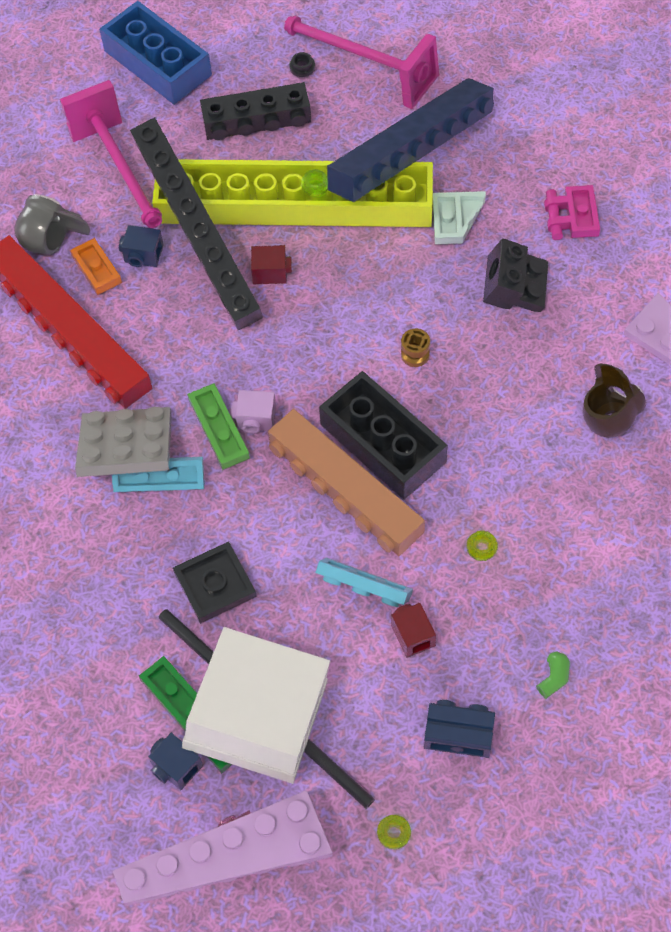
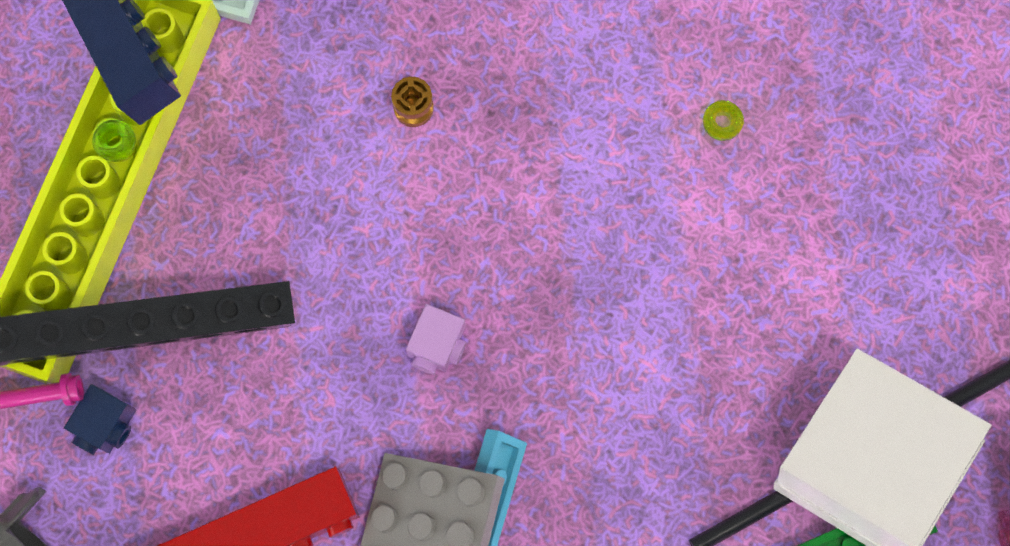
camera: 75 degrees left, 15 degrees up
(96, 266) = (105, 496): orange plate -> none
(214, 582) = (673, 466): black plate -> none
(218, 426) = (438, 395): bright green plate -> none
(270, 264) = (204, 249): dark red brick -> none
(346, 483) = (584, 255): nougat brick -> none
(364, 582) = (733, 277): medium azure plate -> none
(383, 434) = (536, 184): black brick -> none
(413, 629) = (817, 239): dark red brick -> none
(459, 729) = (961, 228): dark blue brick -> none
(559, 674) = (920, 93): bright green arm -> none

